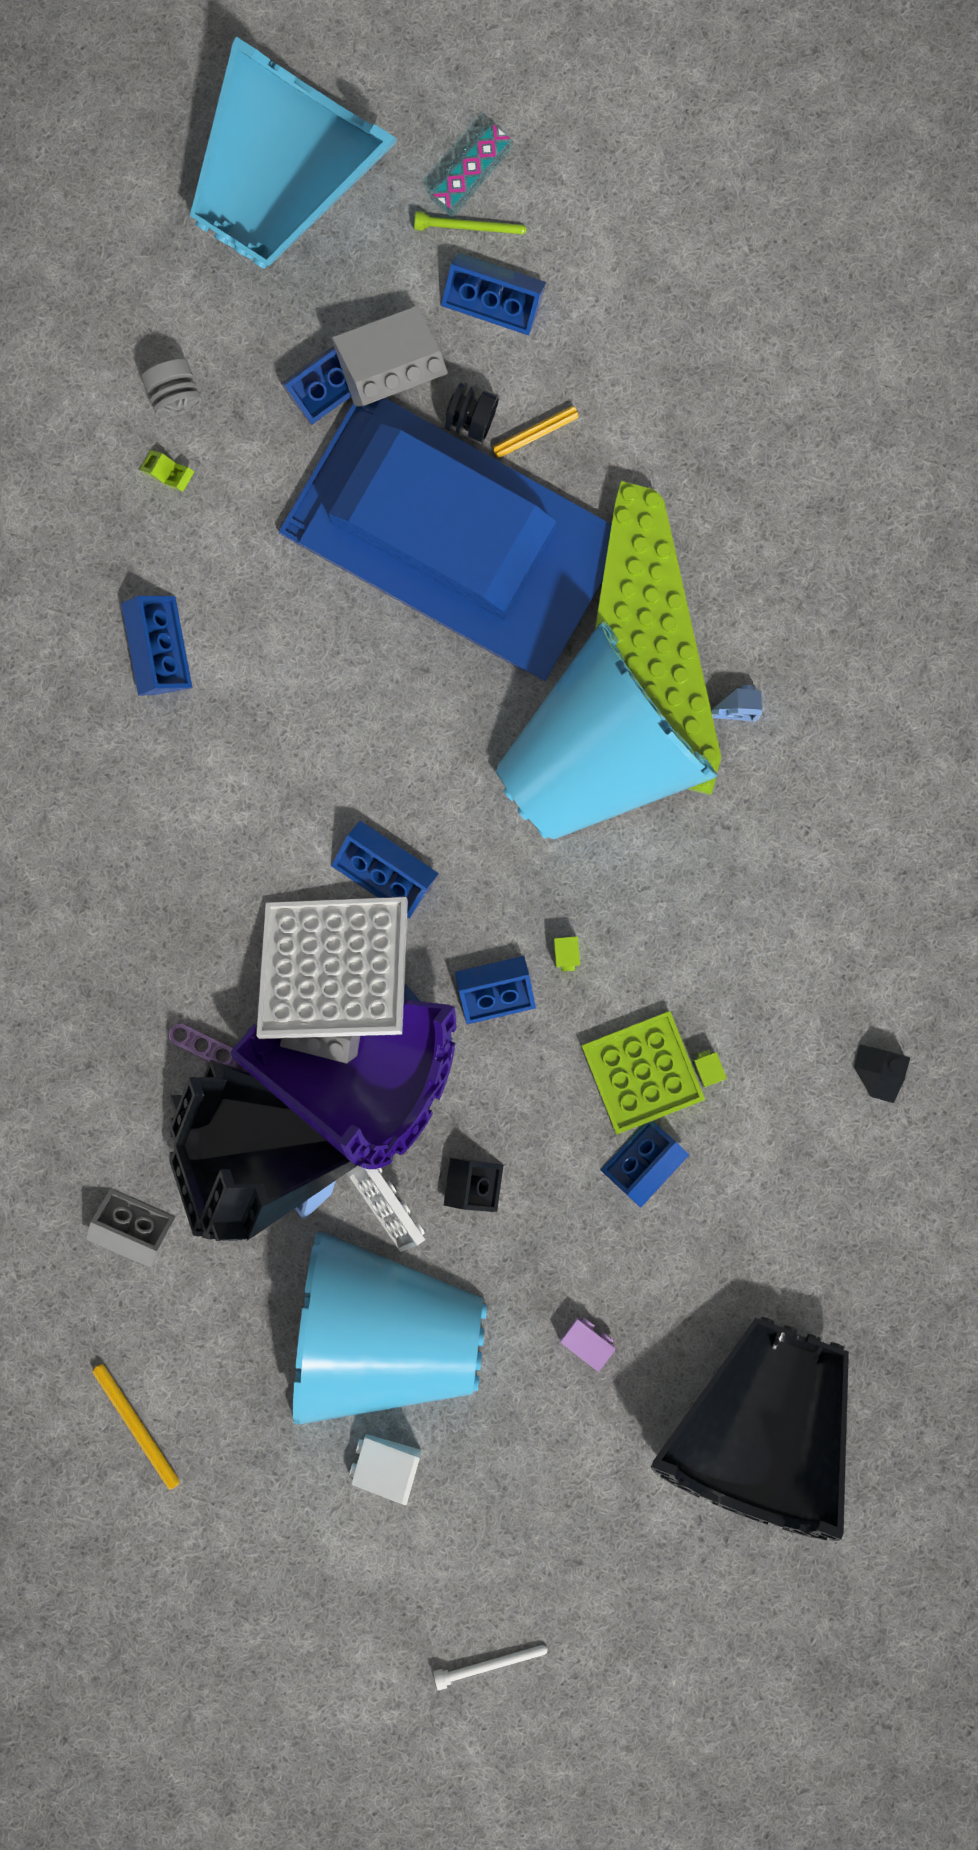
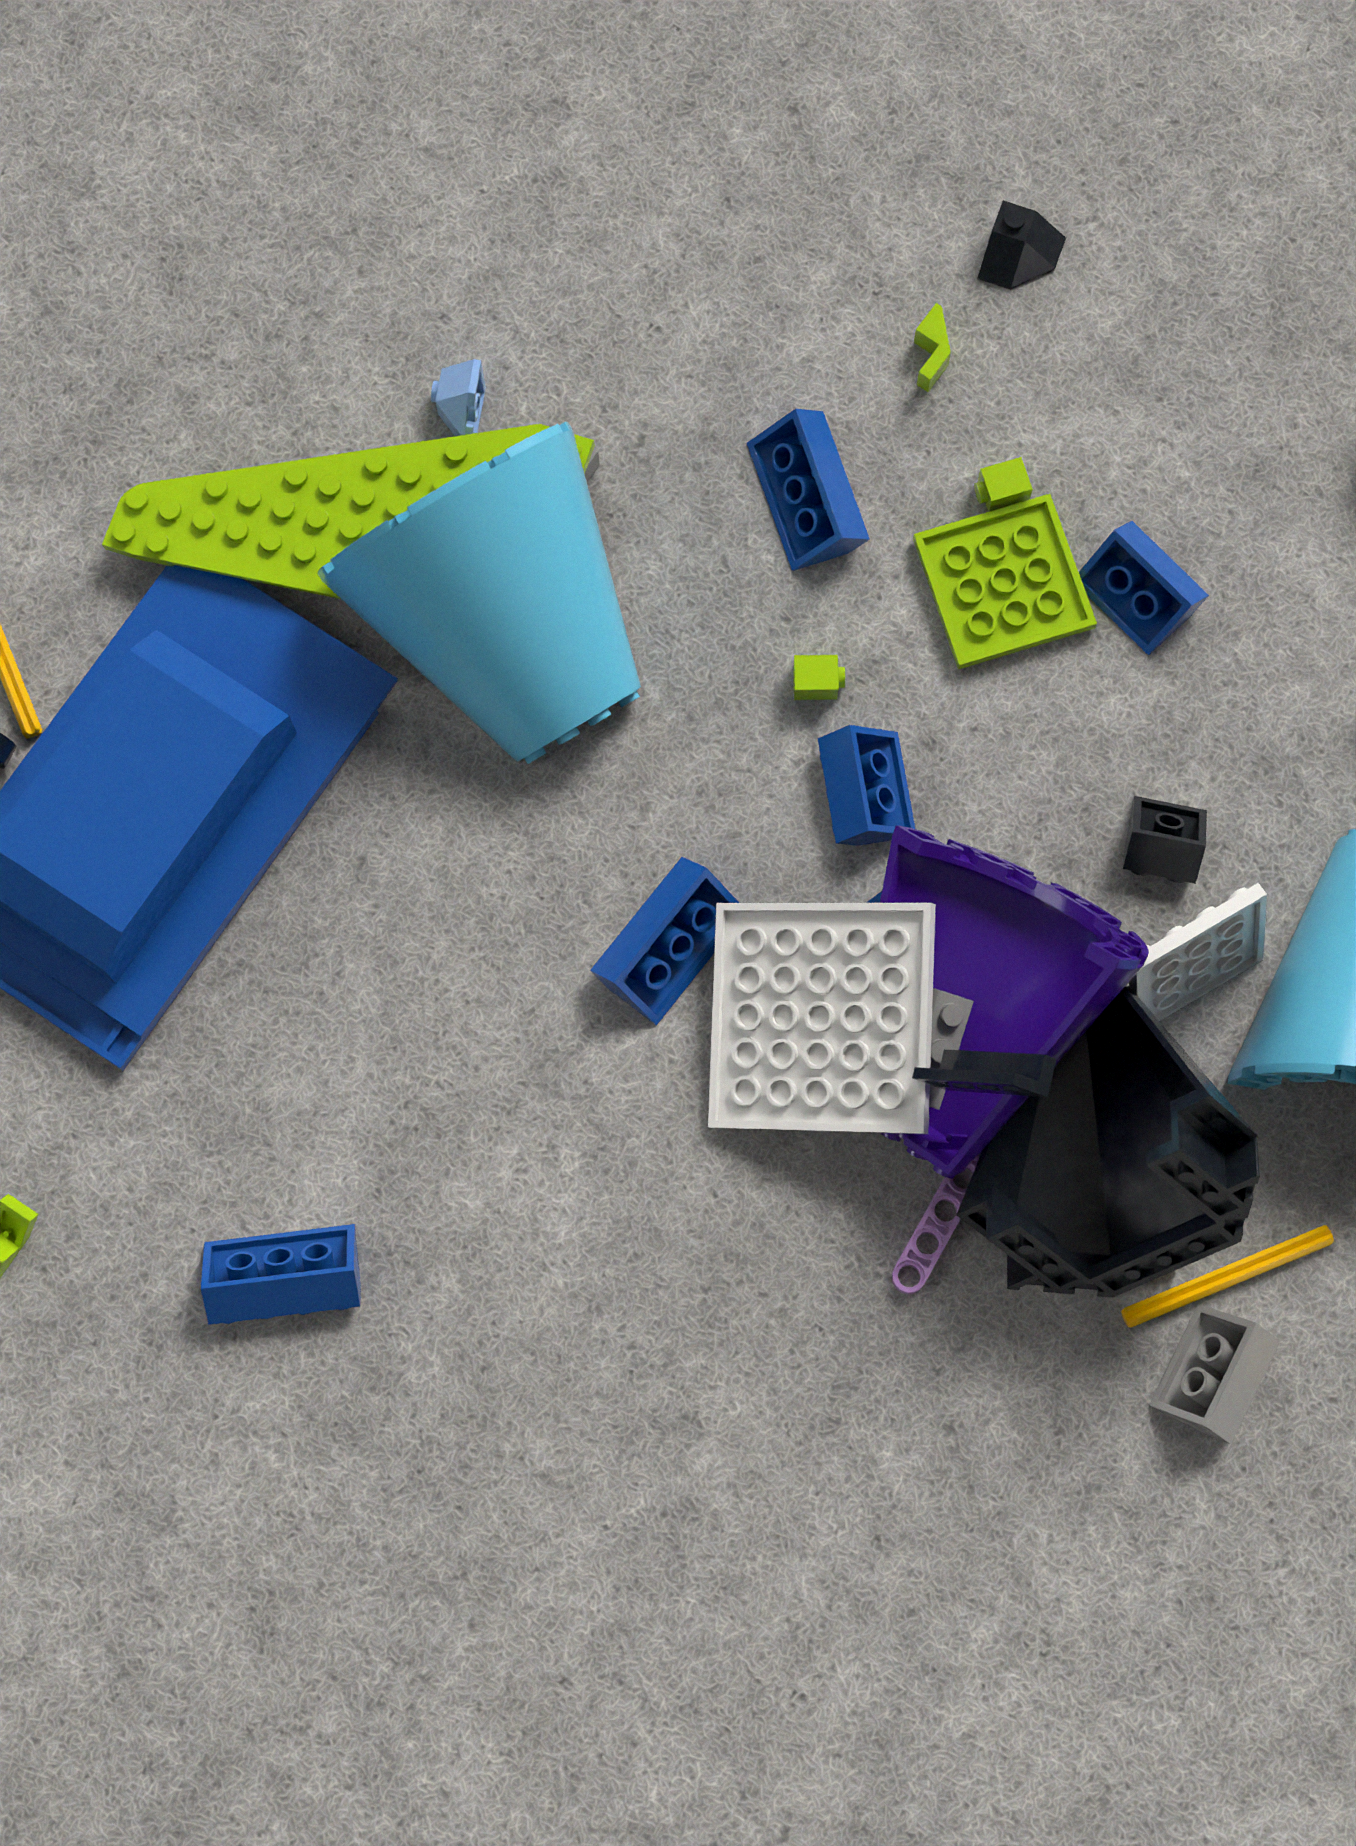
camera: 85 degrees left, 10 degrees down
(196, 1243) = (1227, 1276): none -> yellow axle
(286, 1072) = (991, 1073): none -> black fence
(697, 939) = (807, 489): none -> blue slope
(812, 1016) = (933, 338): none -> lime slope

